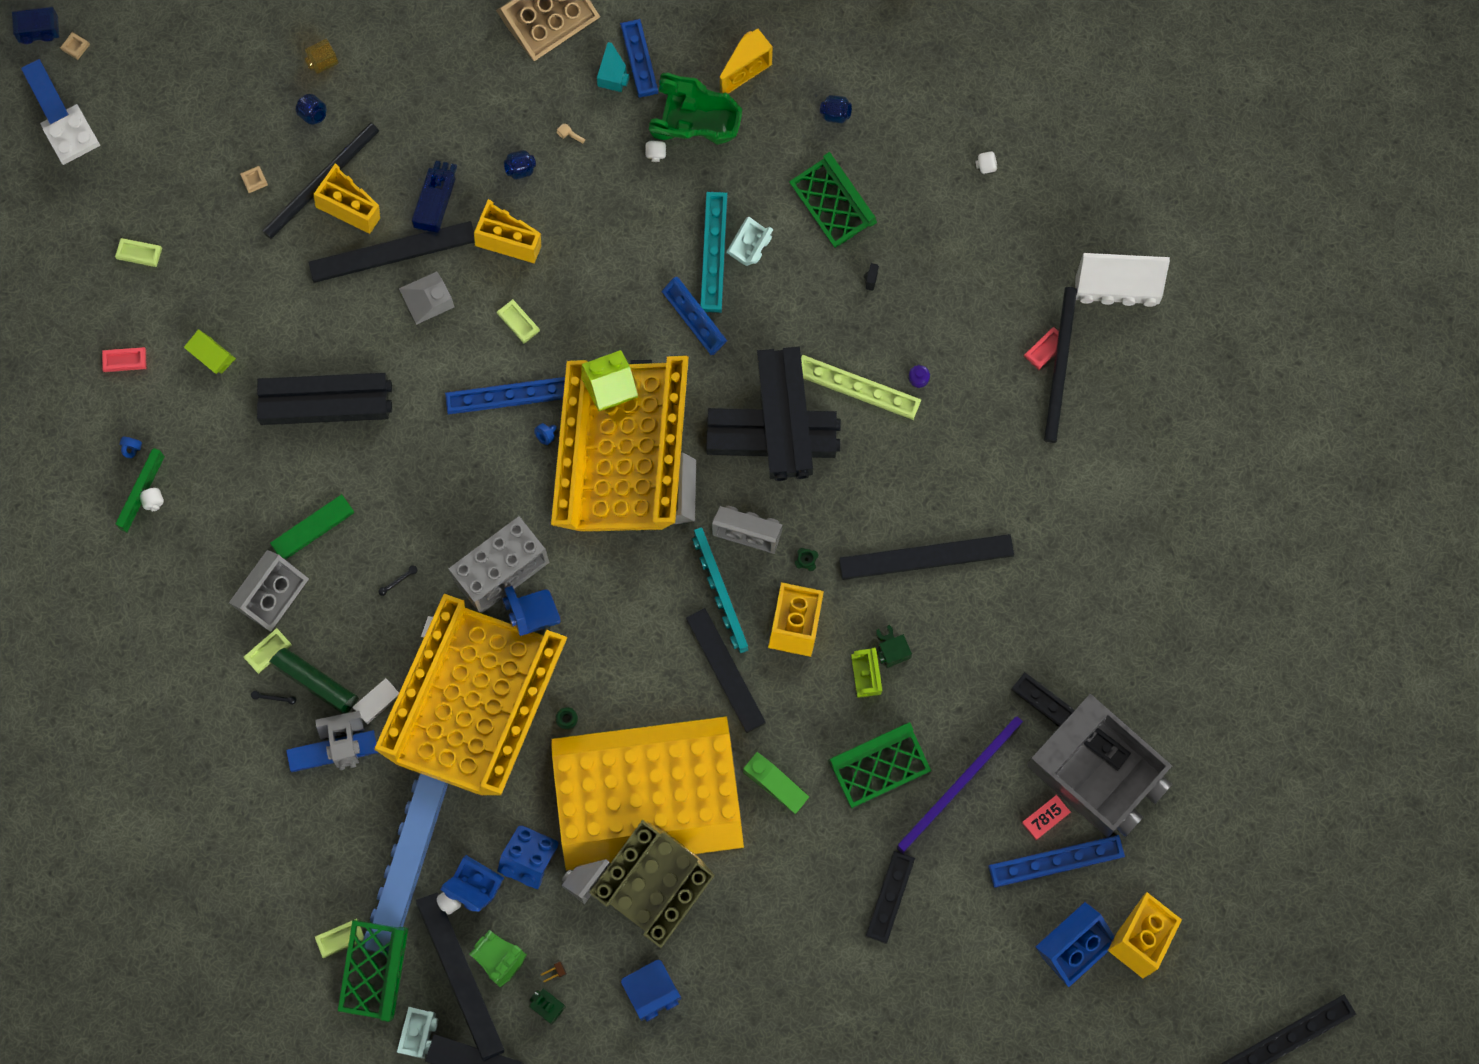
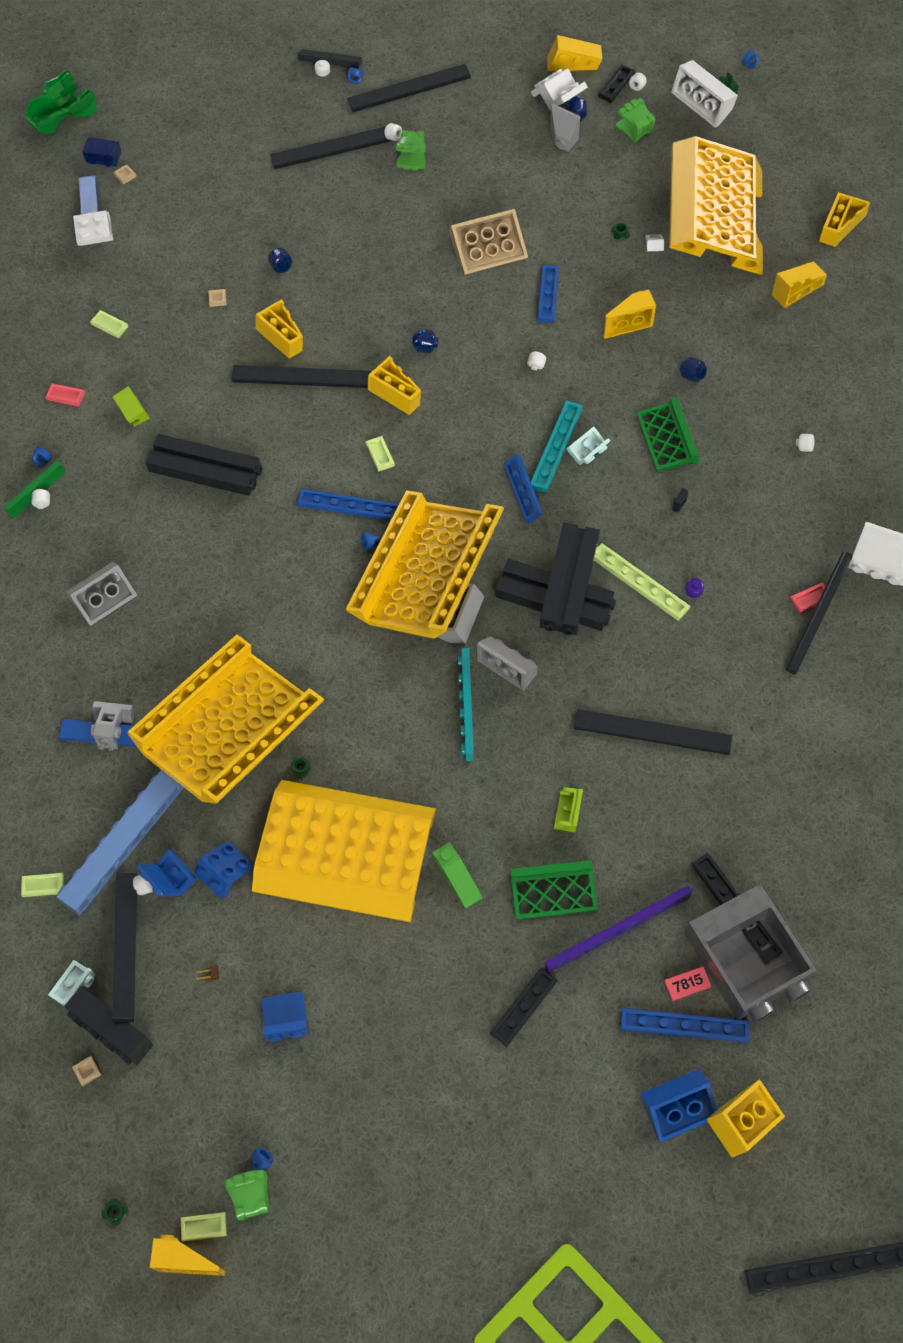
camera: 20 degrees right, 10 degrees down
(256, 695) = (57, 670): black hinge -> none
(266, 649) = (81, 639): yellowish green tile -> none
(308, 192) = (251, 318): black piece -> none
(312, 527) = (156, 557): green tile -> none
(314, 680) = (106, 671): dark green brick -> none
(320, 56) = (302, 227): clear yellow brick -> none
(376, 701) = (144, 705): white tile -> none
(392, 975) = (72, 923): green fence -> none
(412, 570) = (222, 613): black hinge -> none
(427, 297) = (315, 416): light grey slope -> none
(432, 200) = (348, 348): clear blue hinge -> none
(497, 563) = (290, 626): light grey brick -> none
(498, 957) = (164, 943): bright green piece -> none
(531, 611) = (302, 672): blue bracket -> none
(546, 1005) = (190, 999): dark green brick -> none
(565, 130) = (470, 327): tan hand -> none
(583, 878) = (265, 902): light grey slope -> none
(609, 380) = (433, 510): lime slope -> none
(612, 70) = (522, 295): teal slope -> none
(653, 882) = (319, 921): olive slope -> none
(695, 111) = (578, 339): green animal -> none
(725, 670) = (448, 771): black tile -> none
(796, 619) = (522, 747): yellow slope -> none
(806, 553) = (549, 697): dark green plate -> none
(892, 649) = (598, 797): dark green brick -> none

